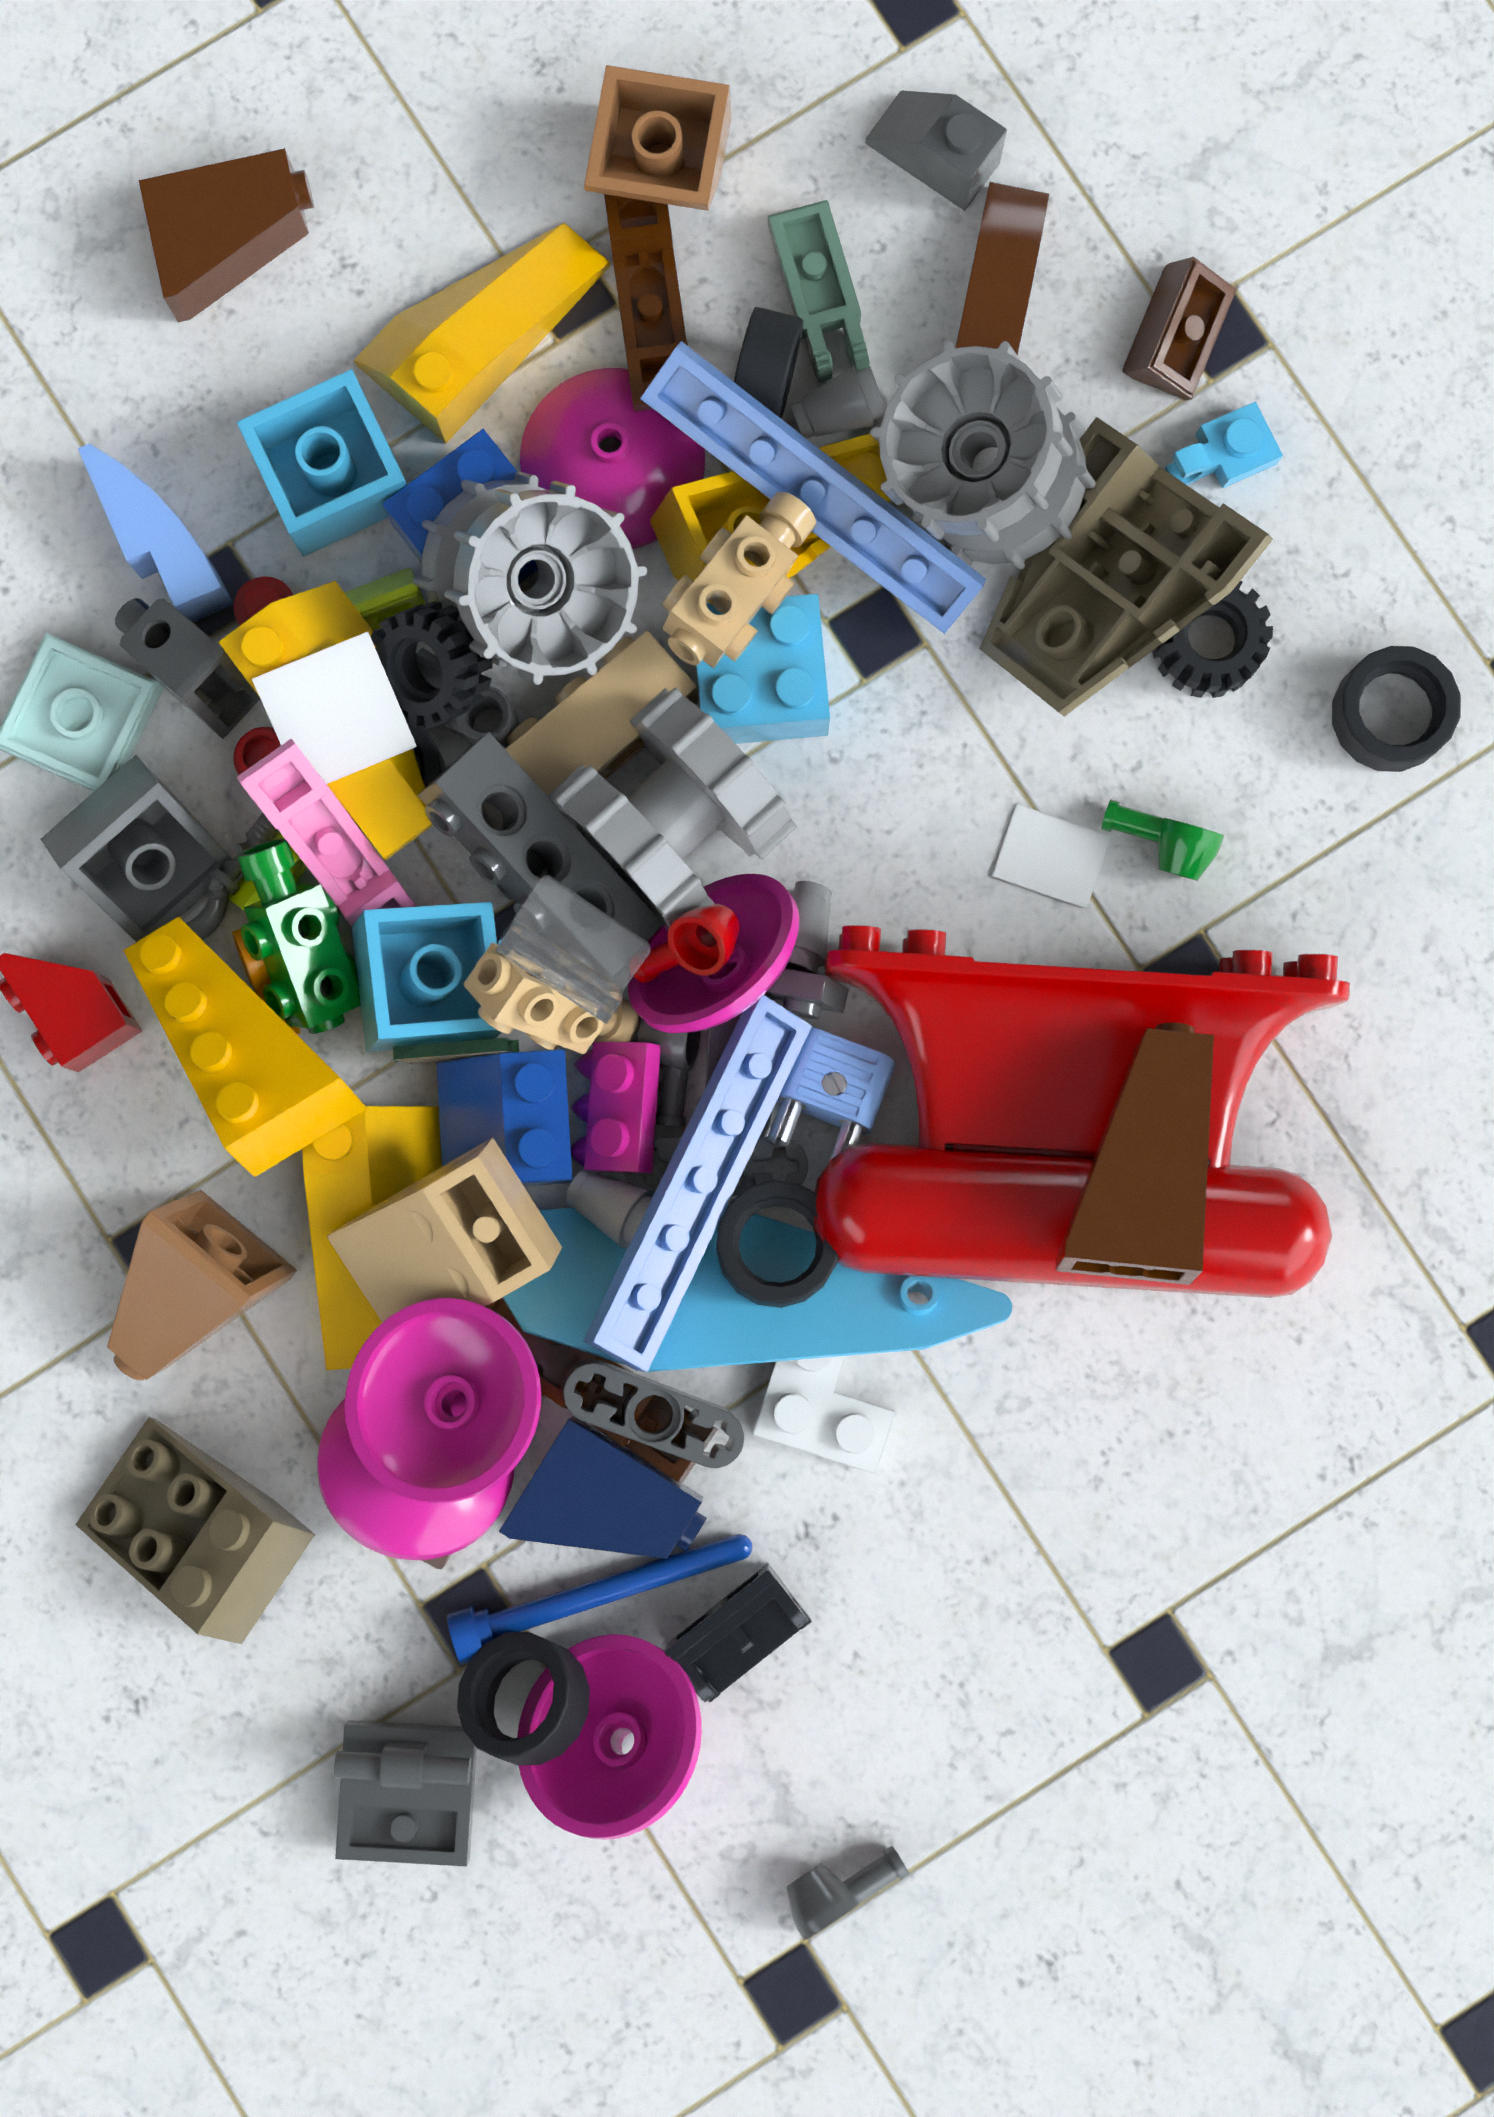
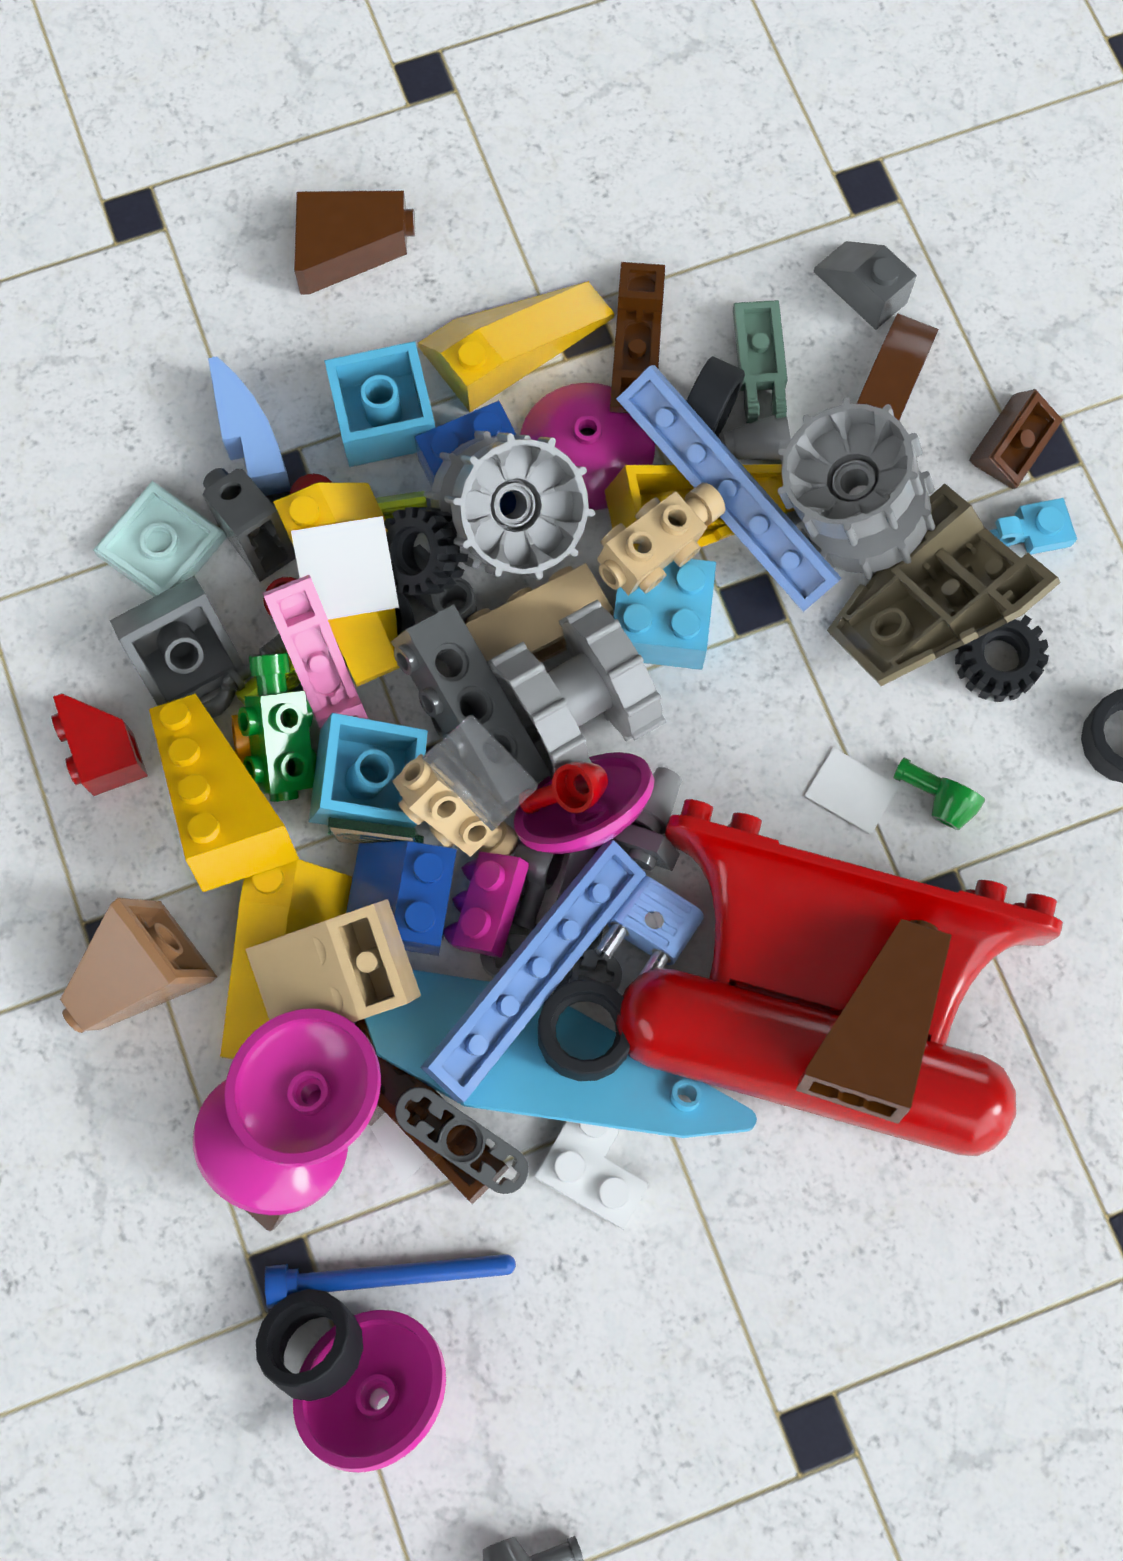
camera: 10 degrees right, 10 degrees down
(194, 1533) = (89, 1159): dark tan slope -> none
(405, 1793) = (199, 1403): dark grey plate -> none
(603, 1499) = (407, 1200): dark blue slope -> none
(609, 1204) = (463, 973): light grey cone -> none
(659, 138) = (668, 233): medium nougat slope -> none
(737, 1633) = (489, 1333): black hinge -> none

